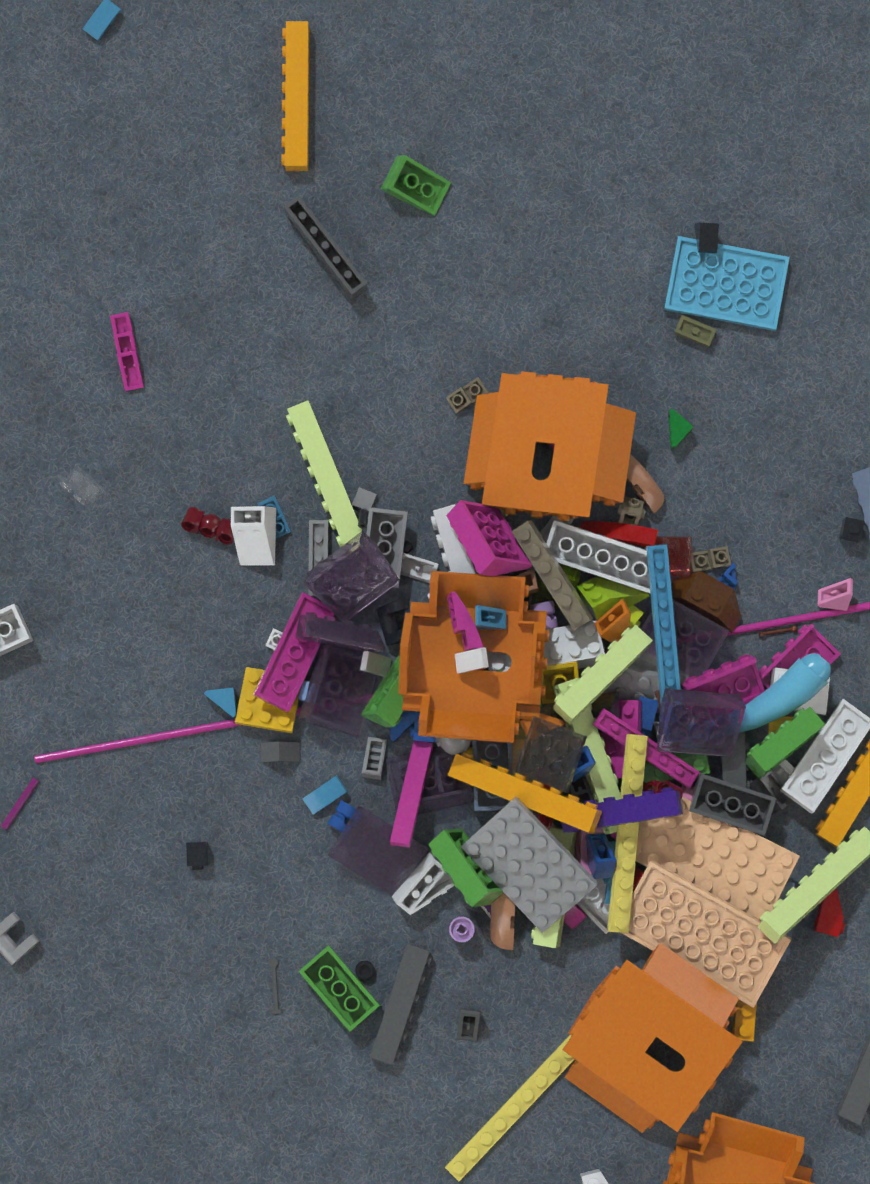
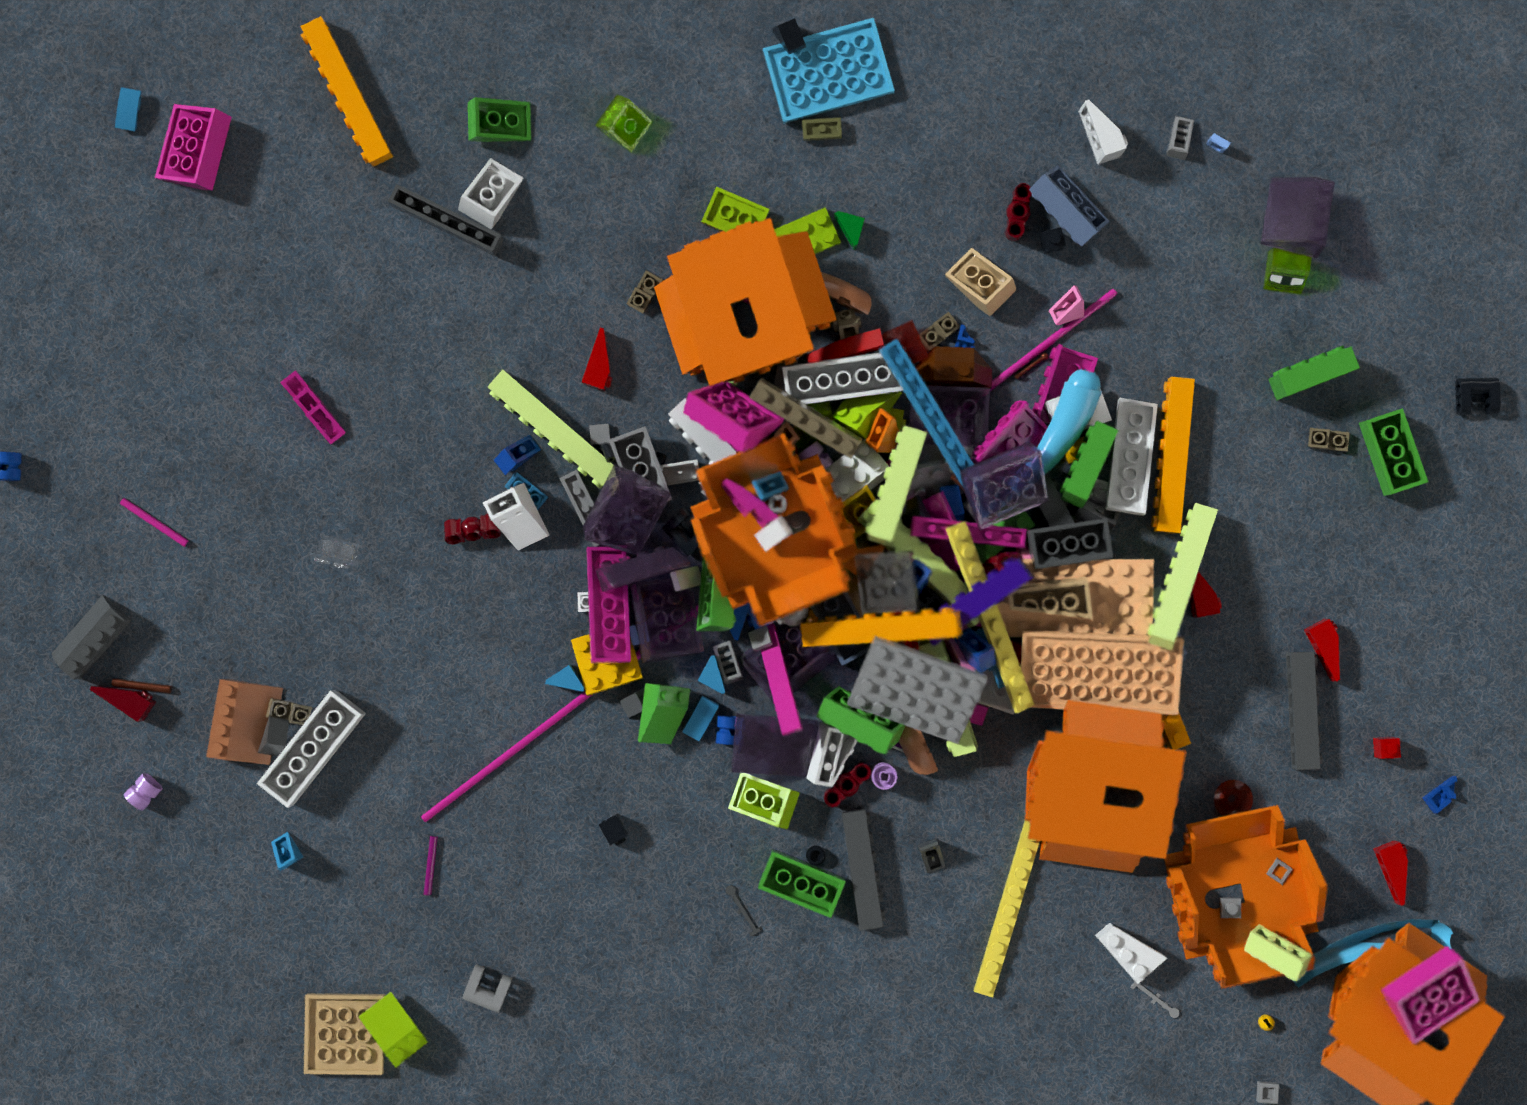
camera: 35 degrees left, 5 degrees up
(141, 78) = (193, 146): none -> dark pink slope
(282, 480) = (516, 454): none -> blue slope
(293, 772) = (662, 712): none -> bright green slope
(344, 897) = (764, 800): none -> lime slope
(354, 761) = (711, 676): none -> dark azure slope
(375, 243) = (489, 193): none -> white slope
(391, 442) = (598, 367): none -> red slope
(413, 750) = (760, 638): none -> light grey tile
(415, 920) = (856, 781): none -> dark red piece
(492, 632) = (778, 498): none -> light grey bush
(523, 240) = (624, 123): none -> clear neon green slope
(578, 361) = (730, 210): none -> lime plate
(648, 416) = (819, 228): none -> lime plate
(696, 845) = (1054, 597): none -> tan wedge
(770, 534) = (981, 281): none -> tan slope
(777, 1109) = (1242, 793): none -> clear red dish
(837, 481) = (1018, 203): none -> dark red piece

